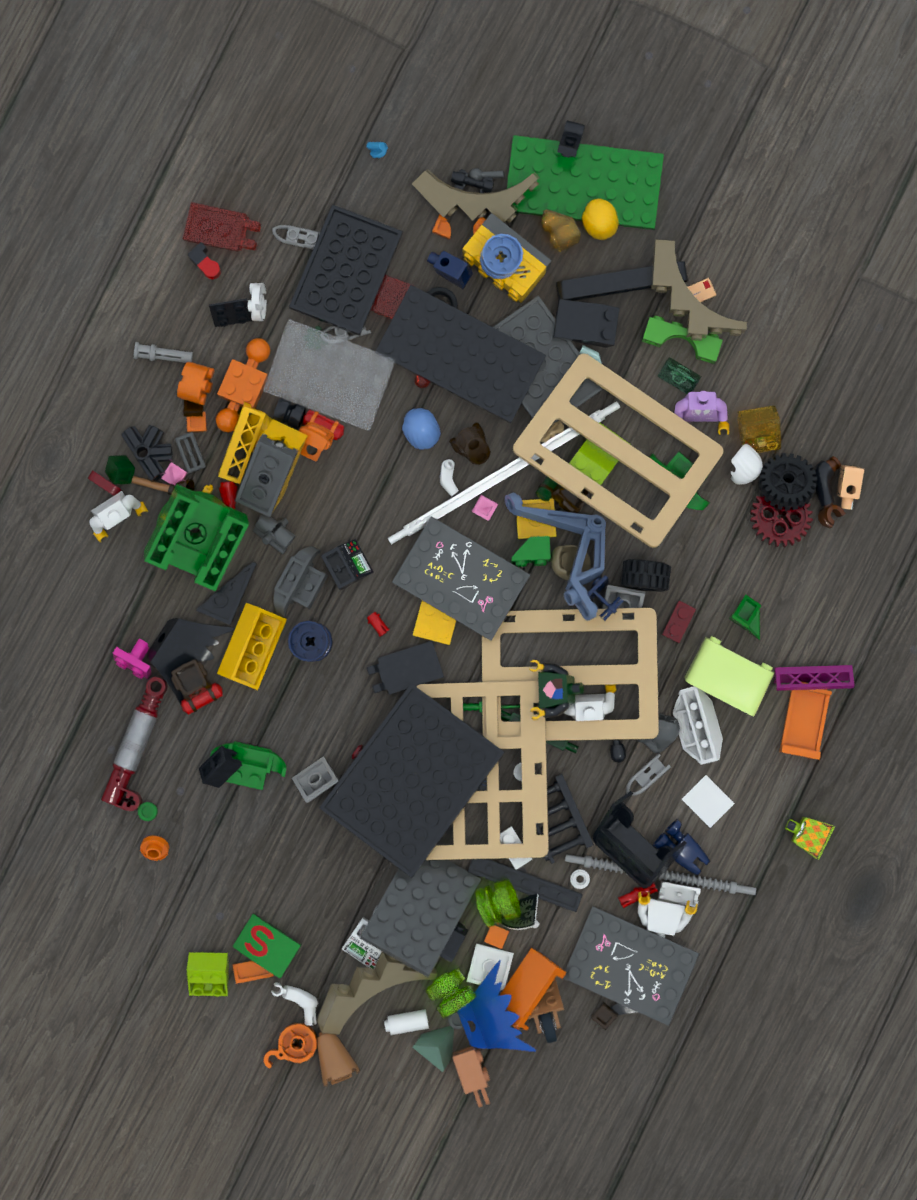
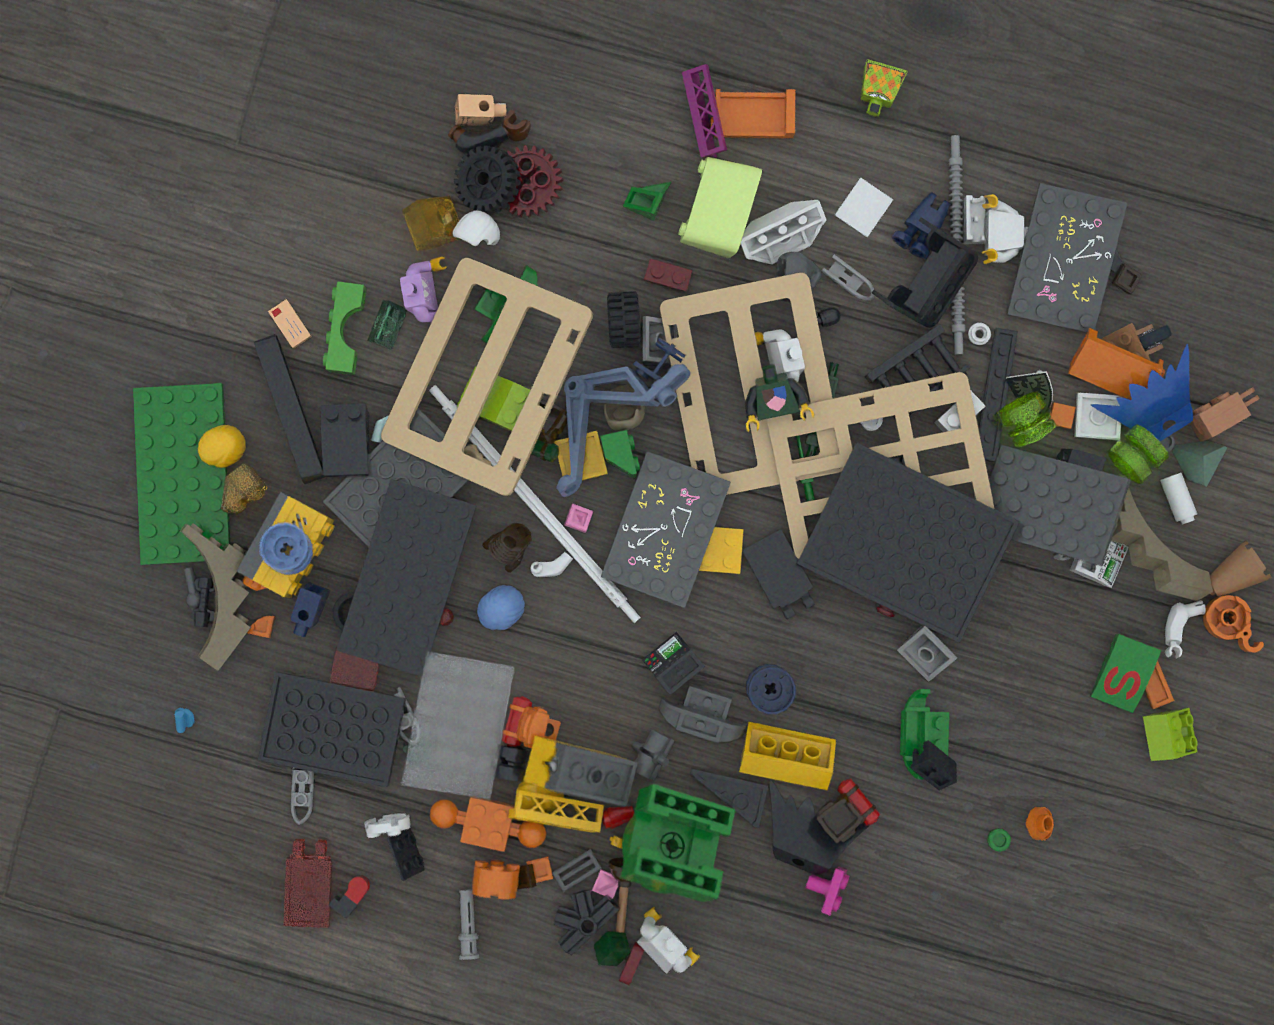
camera: 100 degrees left, 0 degrees up
(132, 748) = (929, 870): piece -> none
(377, 624) = (734, 615): red pin -> none
(571, 139) = (133, 496): black plate -> none
(632, 896) = (987, 270): red pin -> none
(700, 318) = (318, 310): dark tan arch -> none

